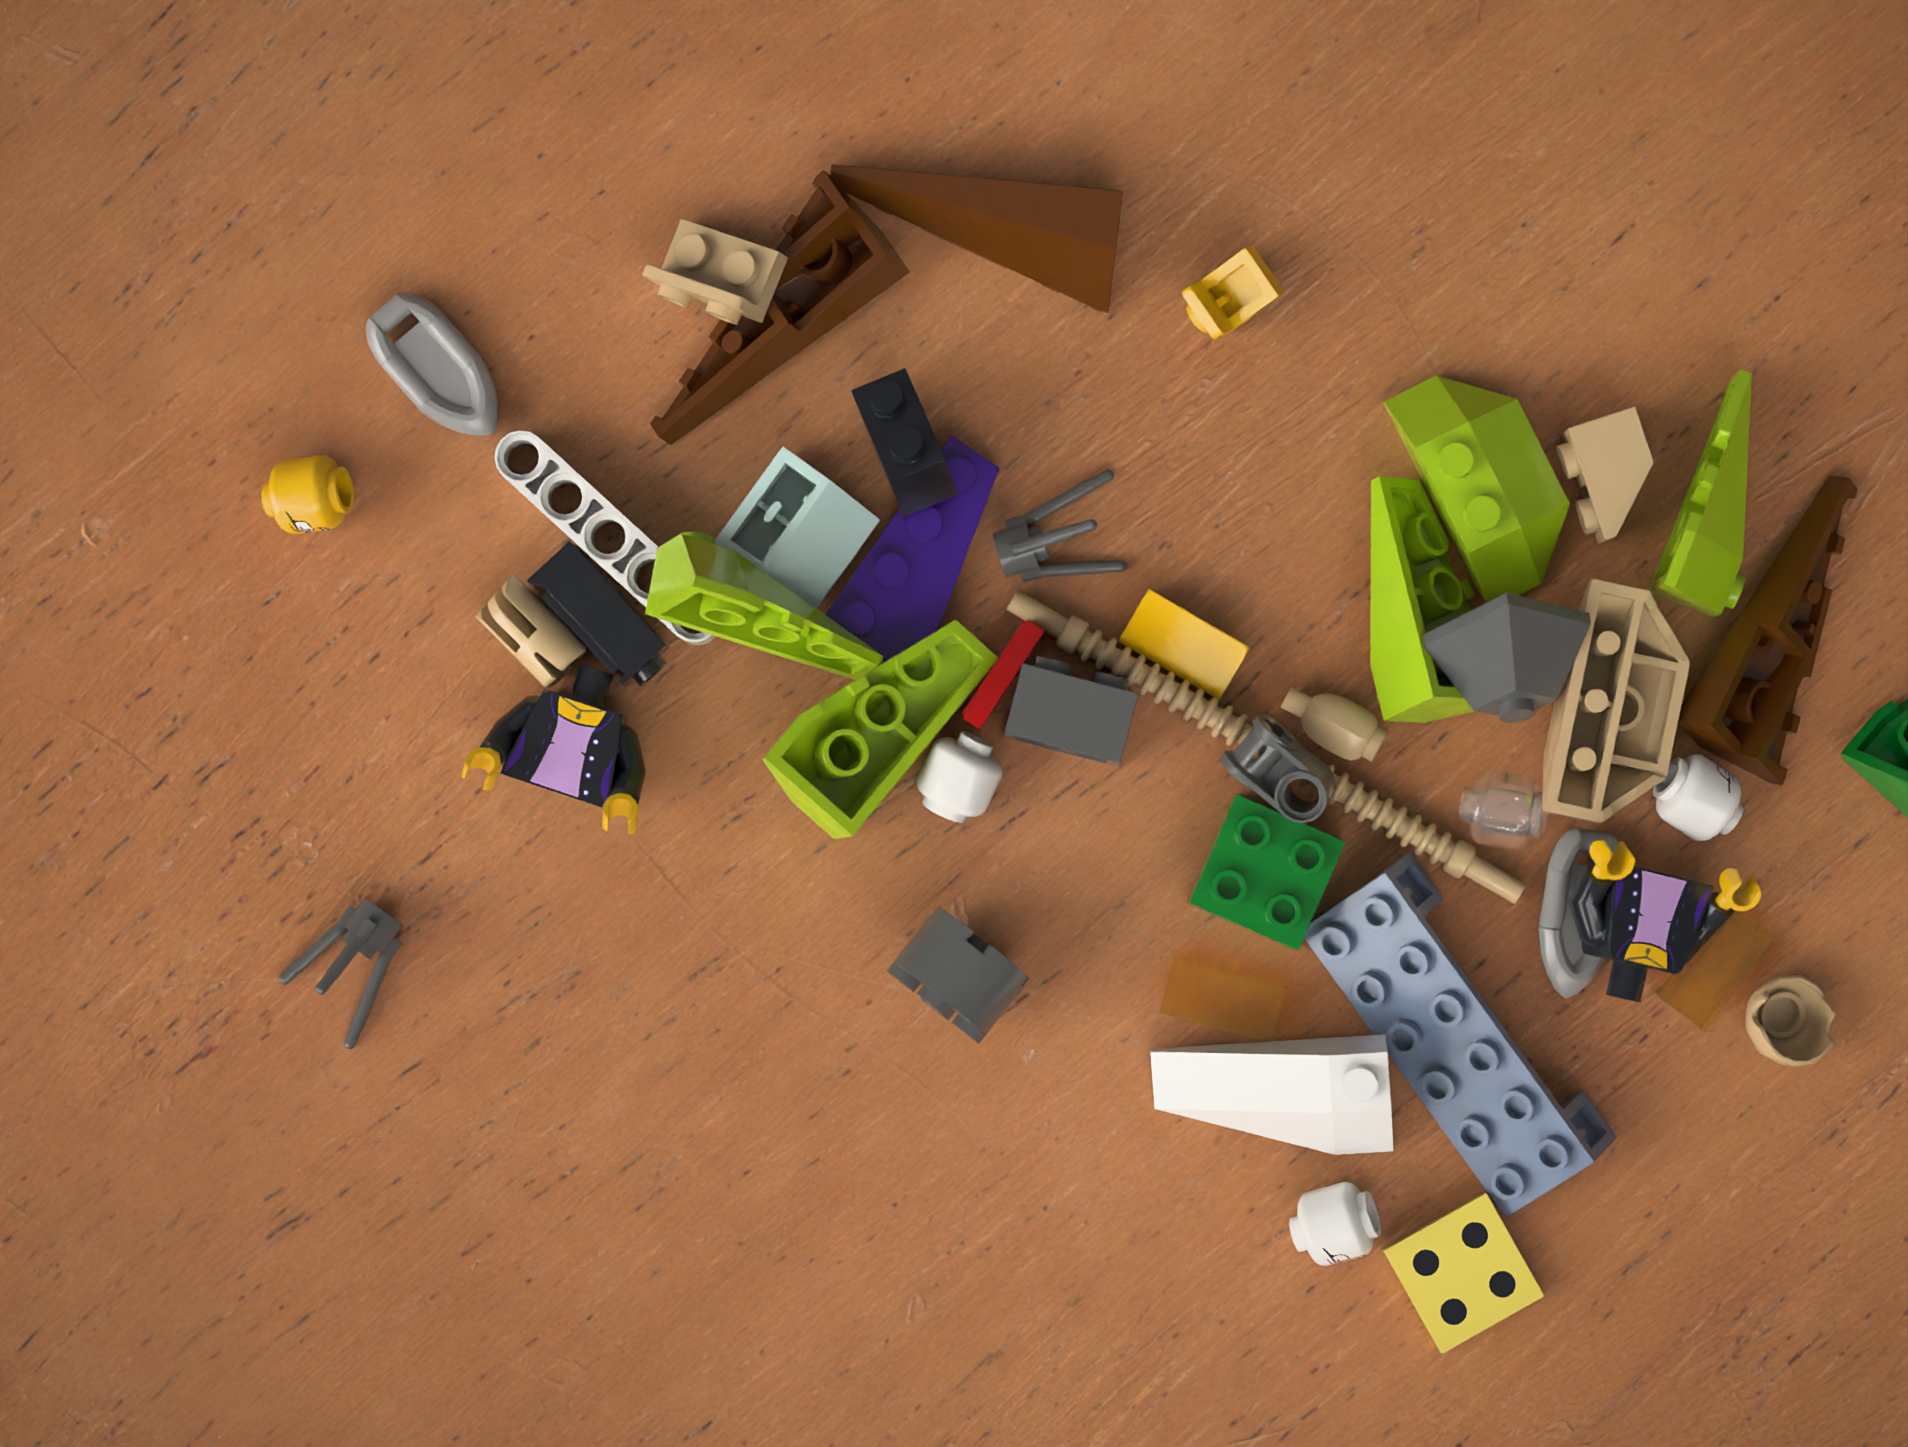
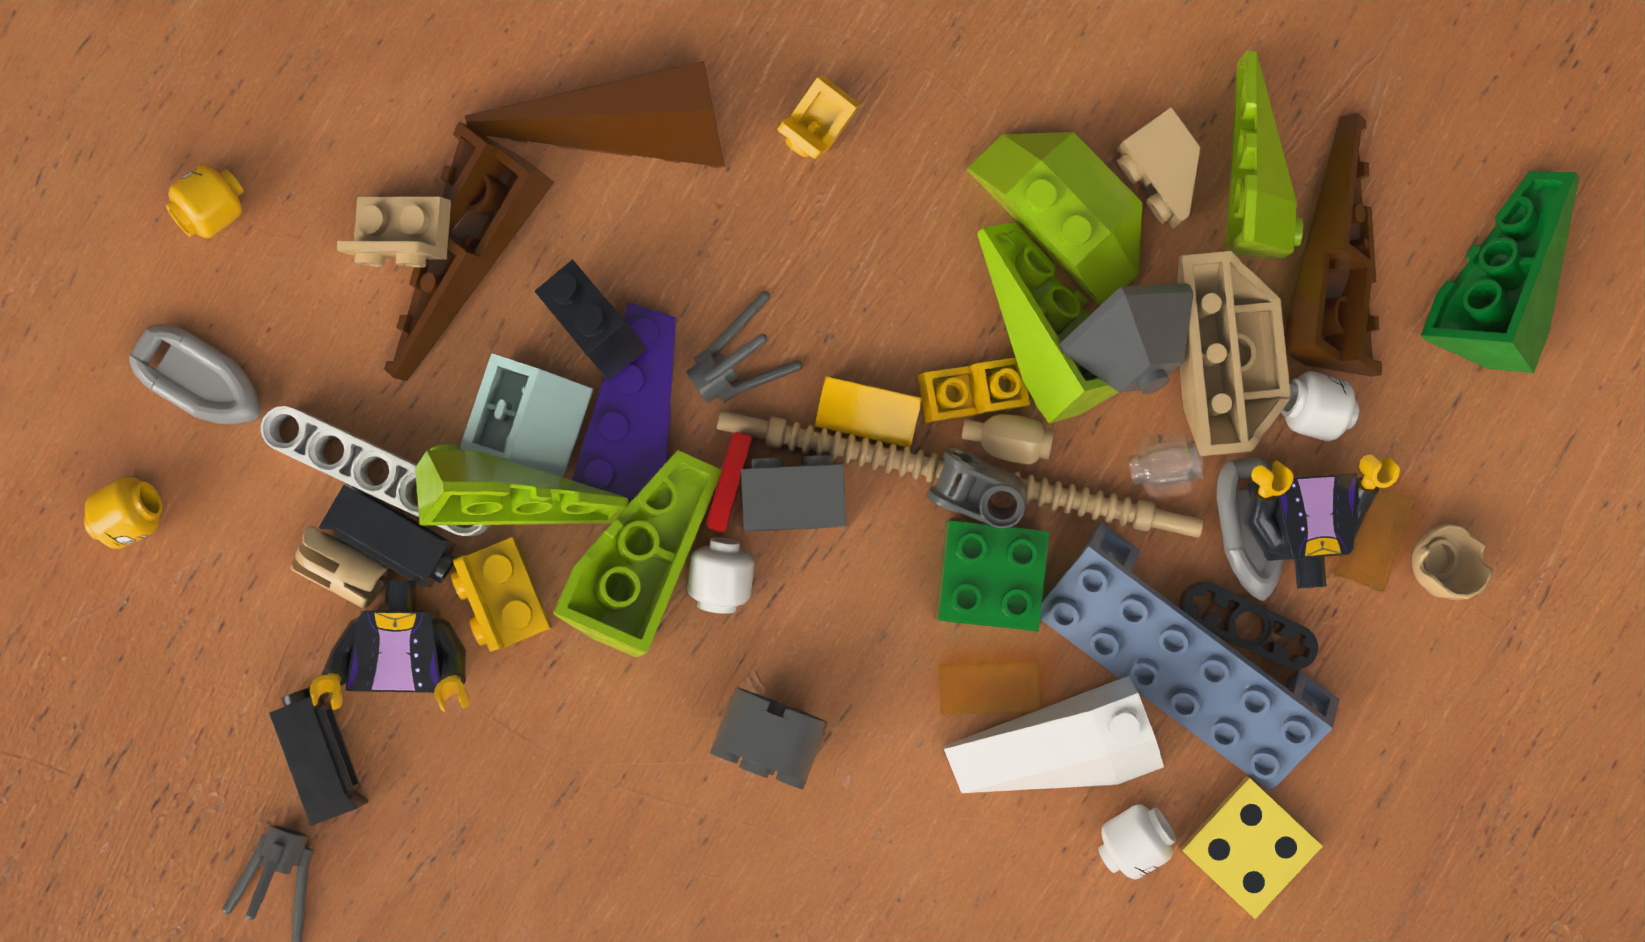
camera: 25 degrees left, 0 degrees up
(442, 837) = (317, 757): none -> black window
(508, 171) = (205, 201): none -> yellow head
(704, 721) = (500, 595): none -> yellow bracket
(1309, 656) = (972, 390): none -> yellow slope
(1582, 1040) = (1287, 628): none -> black beam

